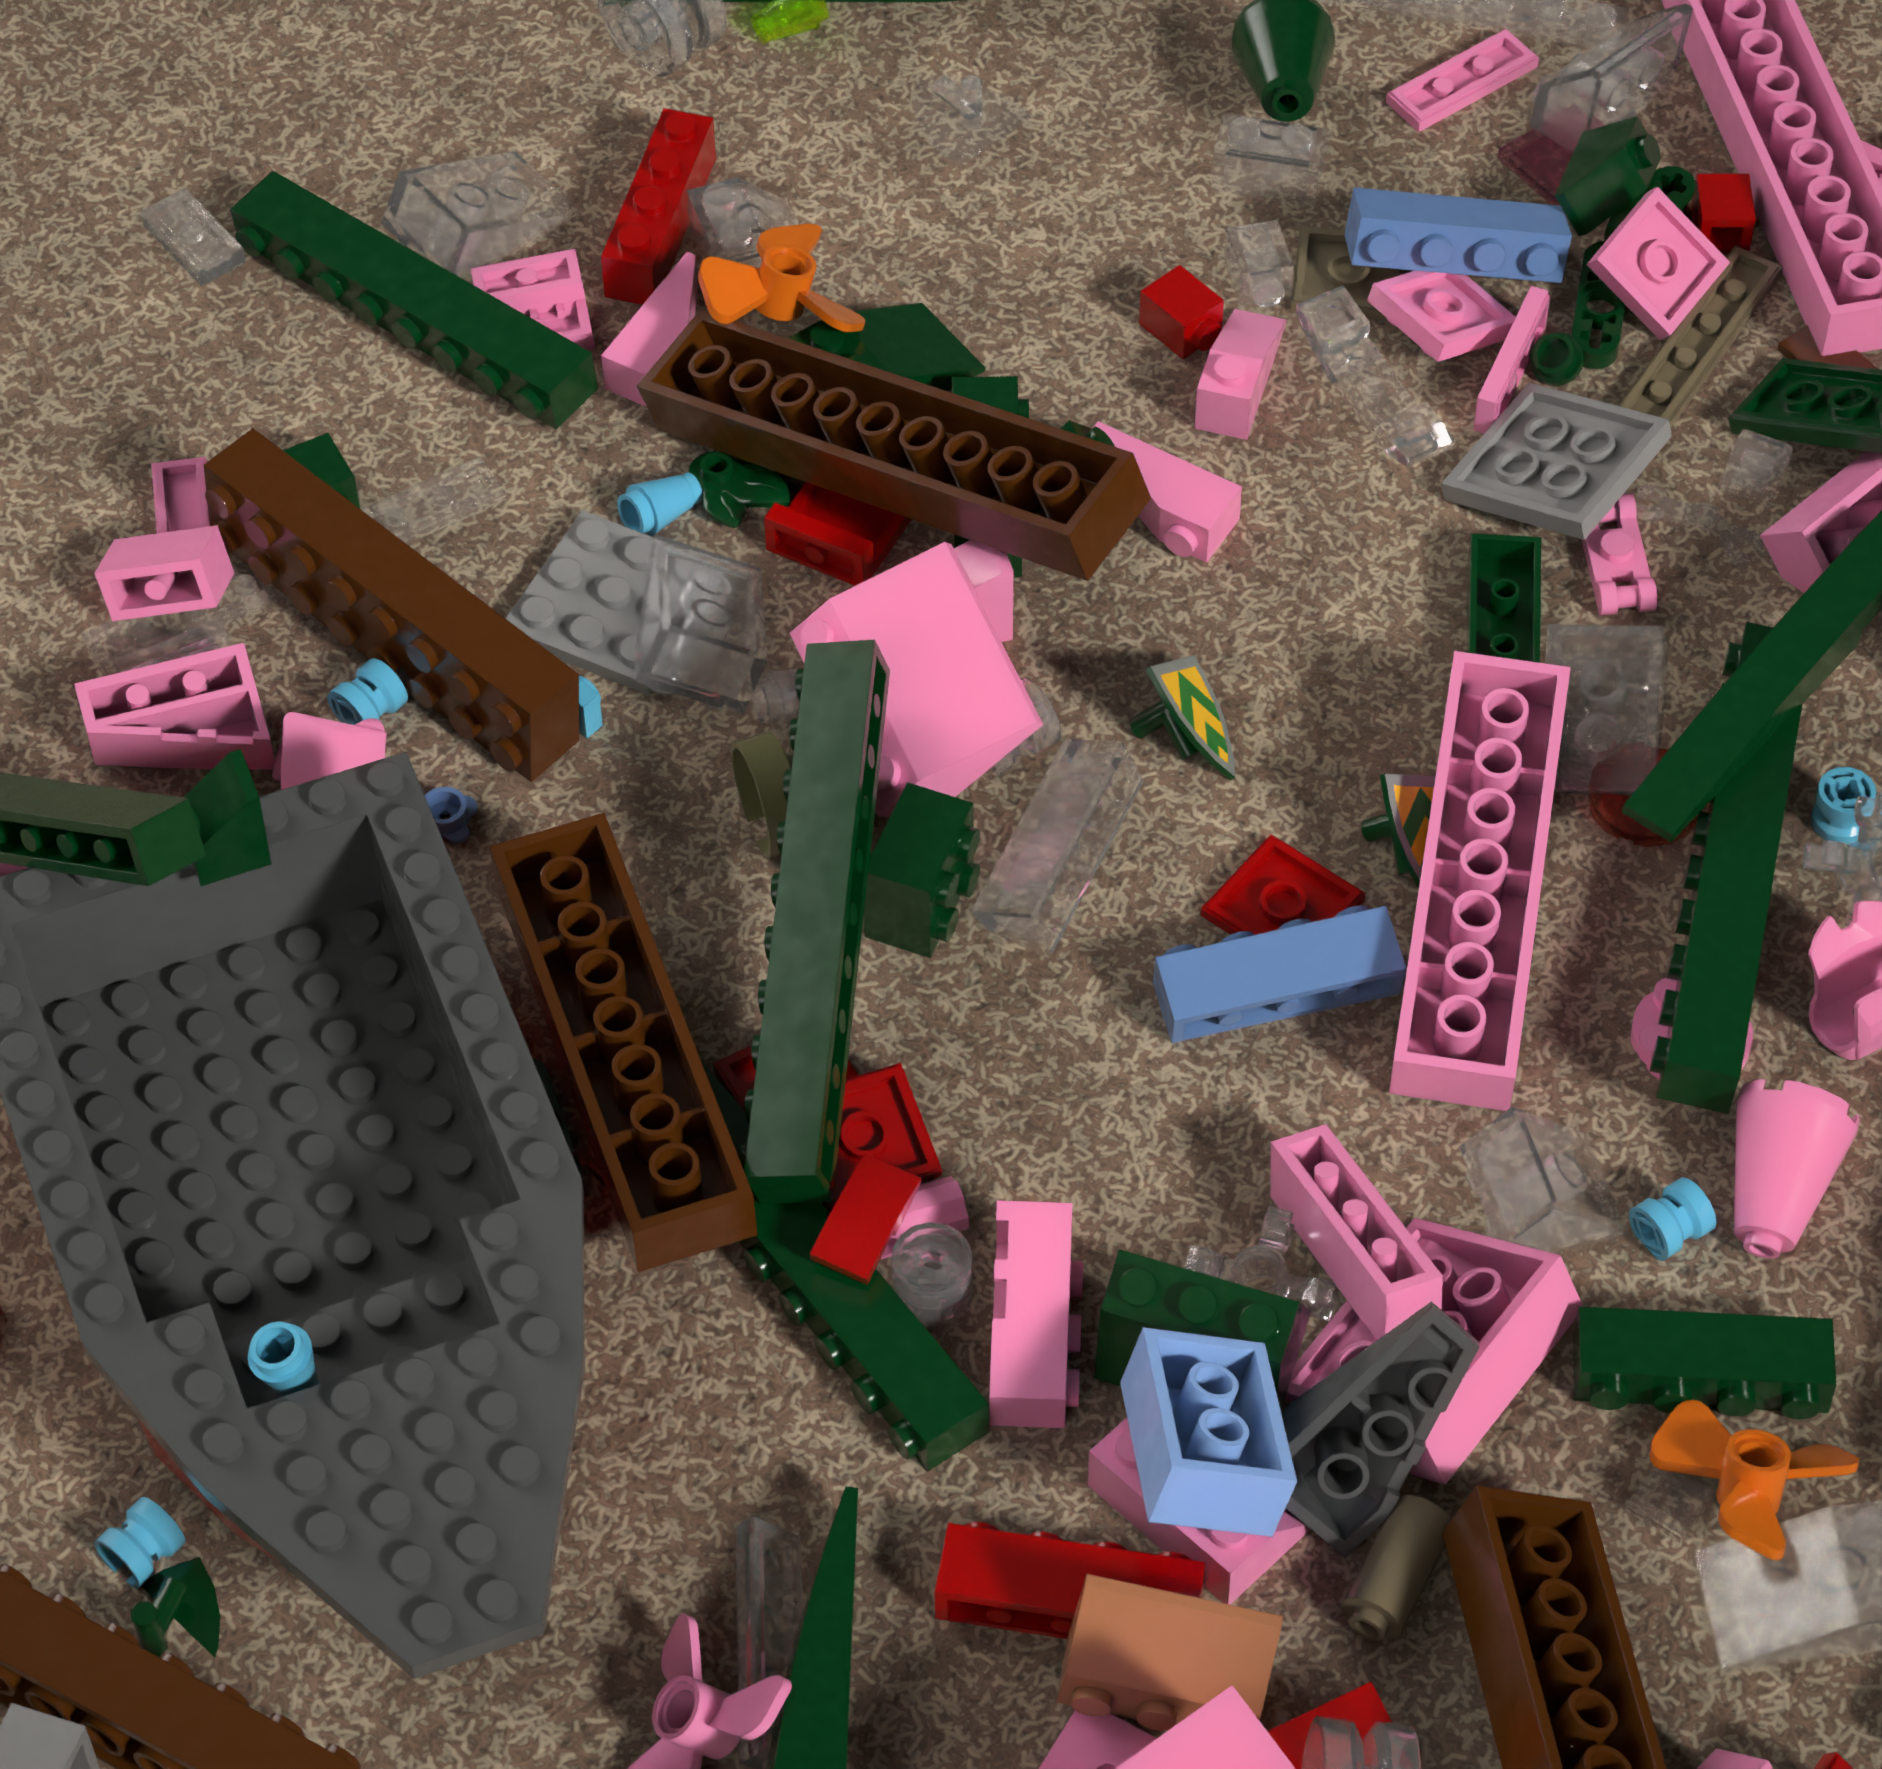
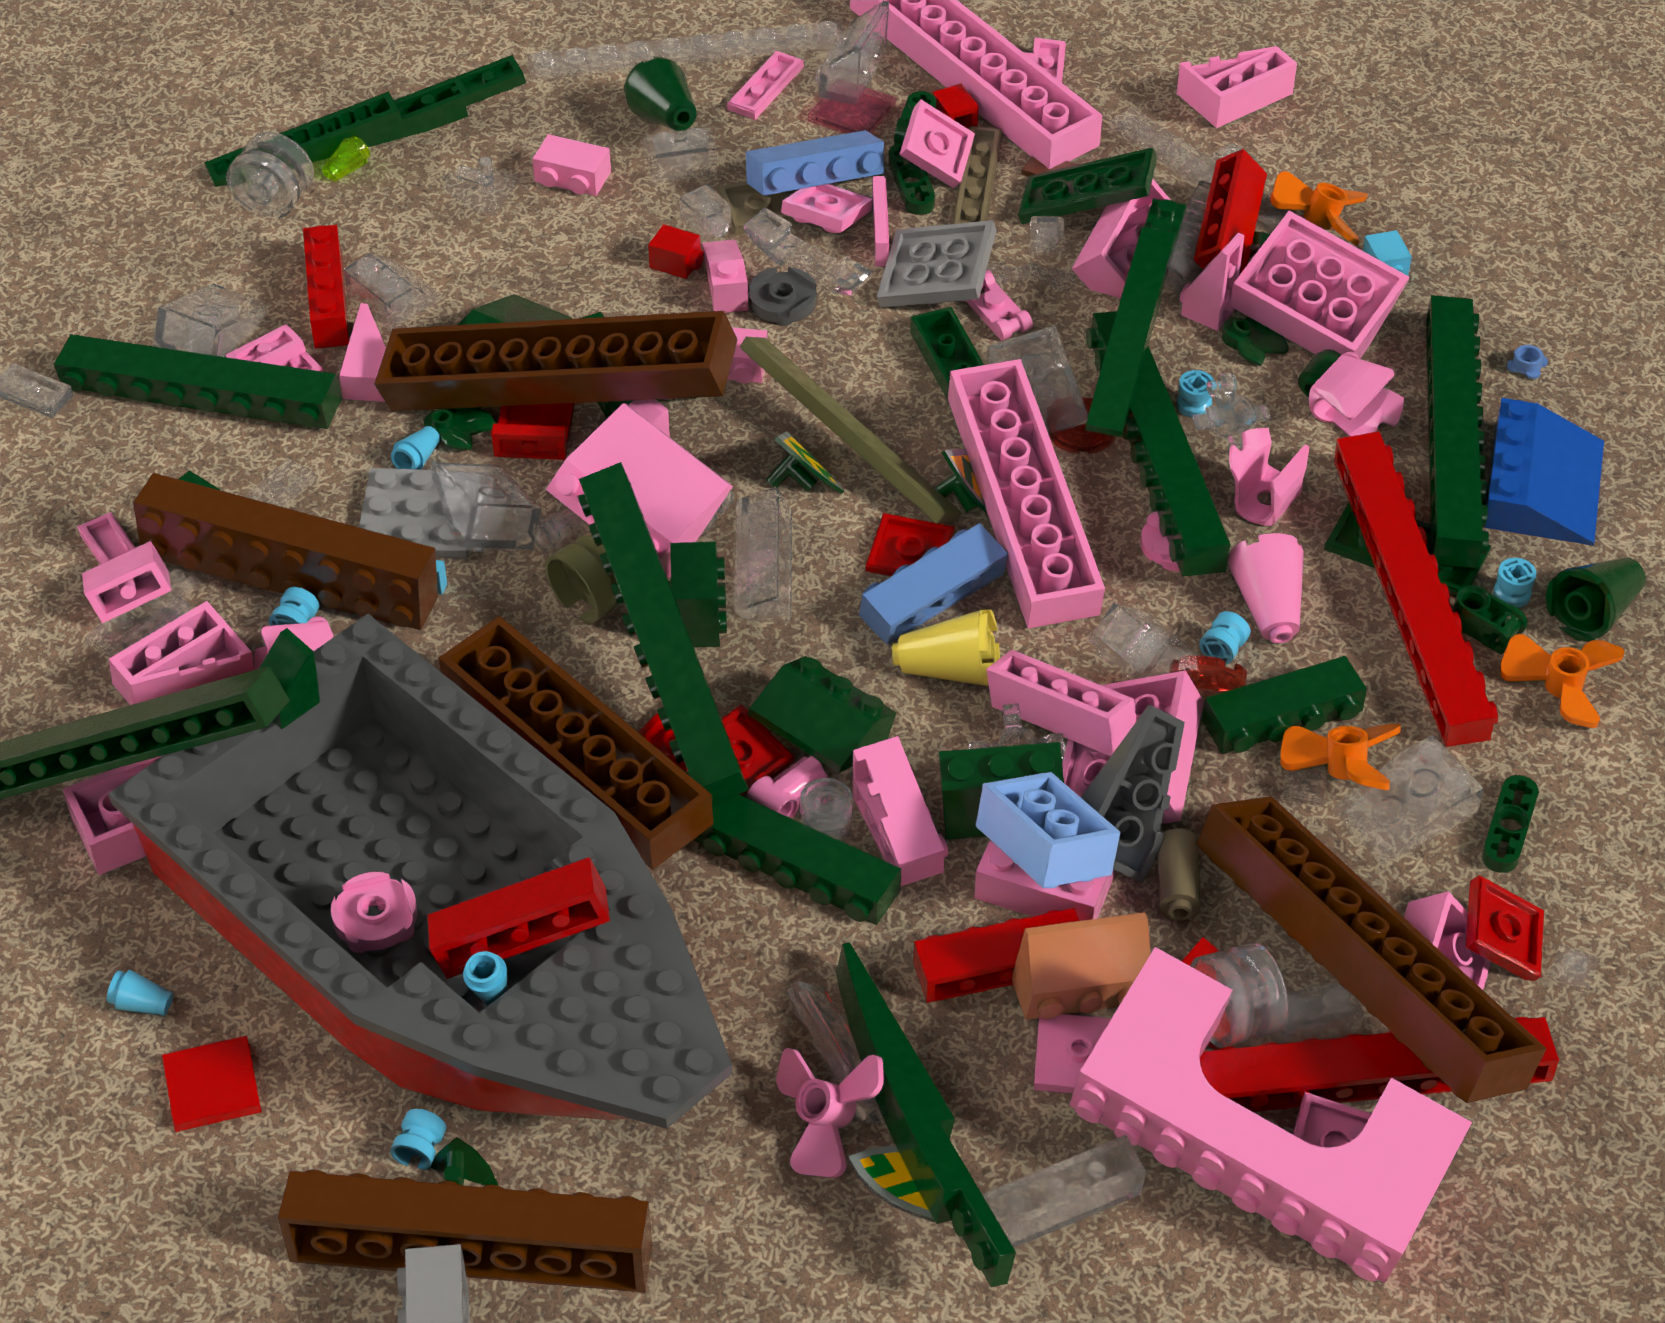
camera: 25 degrees left, 5 degrees down
(222, 1226) = (379, 931): none -> bright pink plate
(367, 1288) = (519, 916): none -> red brick
(778, 287) = (431, 298): orange piece -> none
(865, 1218) = (774, 792): red slope -> none
(1004, 1121) = (821, 712): none -> dark green slope
(1103, 125) = (571, 165): none -> bright pink brick
(1249, 1087) = (951, 649): none -> light yellow cone
(1281, 690) = (850, 430): none -> olive tile
(1299, 458) = (787, 309): none -> dark grey plate
(1556, 359) = (904, 213): dark green plate -> none
(1605, 1269) = (1210, 672): none -> clear red tile
(1607, 172) = (884, 102): dark green slope -> none

